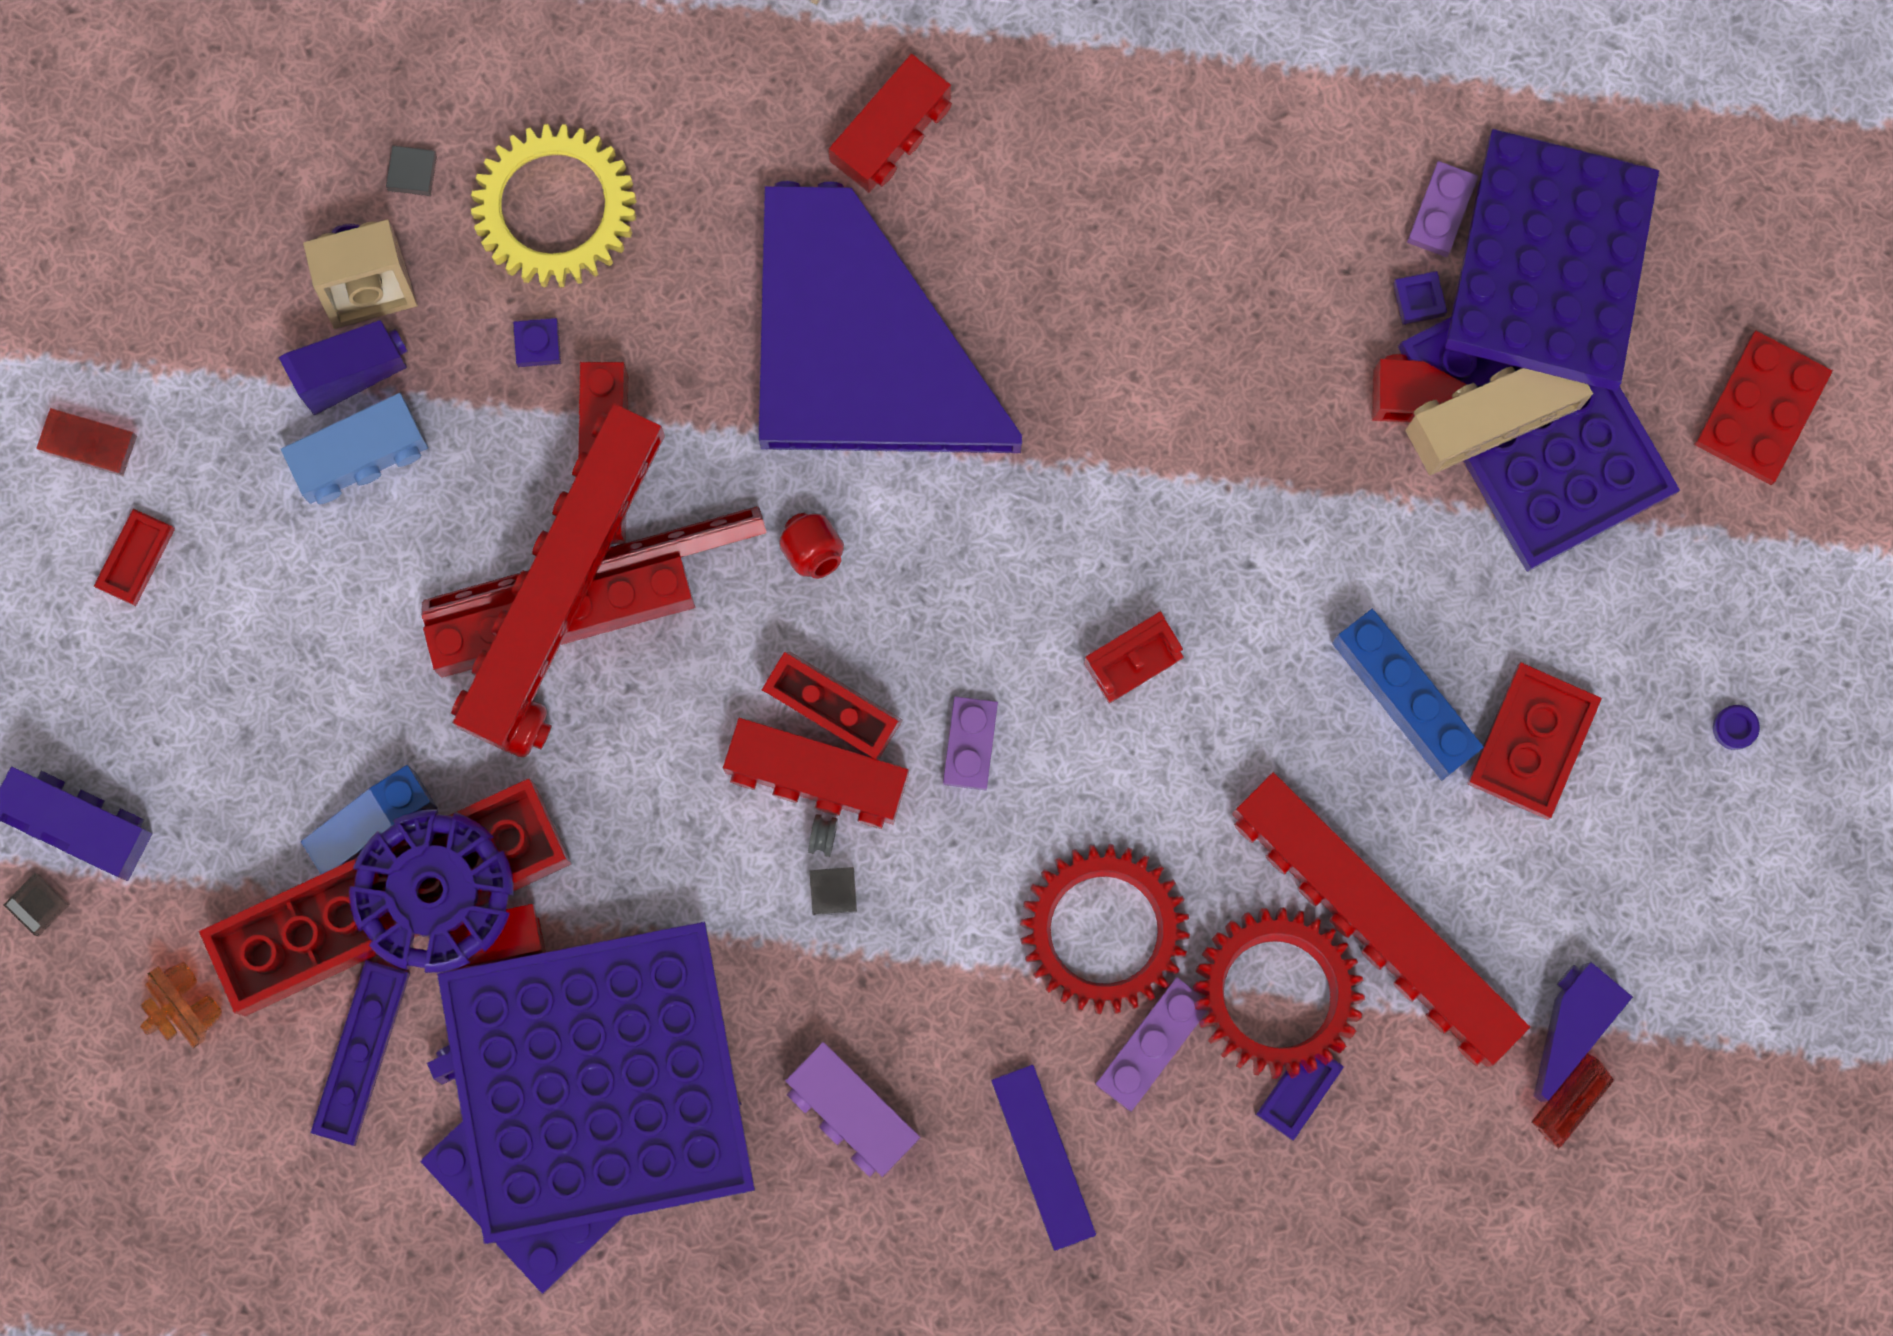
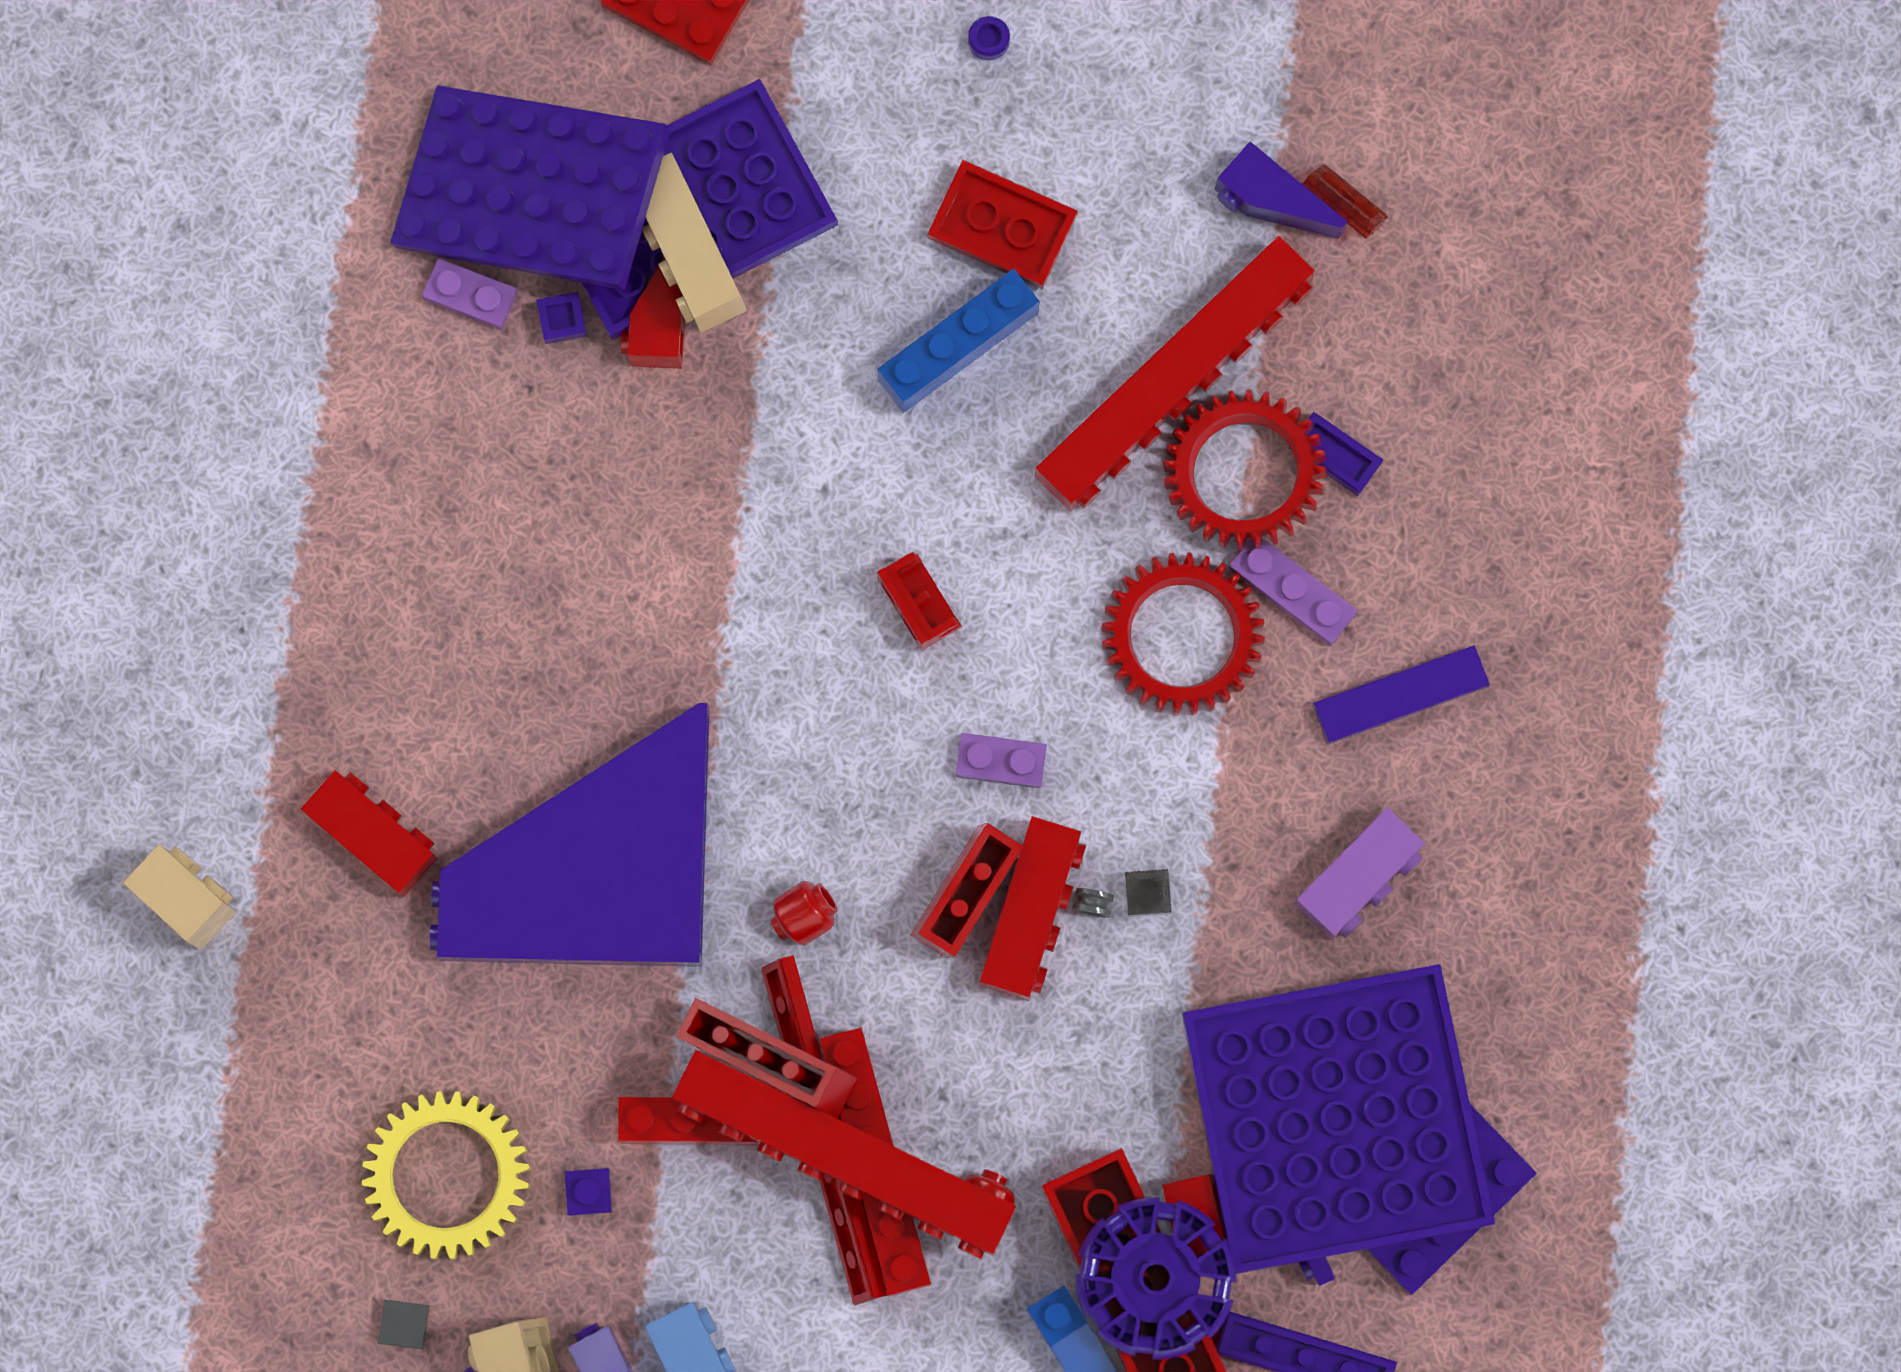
camera: 90 degrees left, 0 degrees up
(659, 503) = (766, 1057): none -> red brick

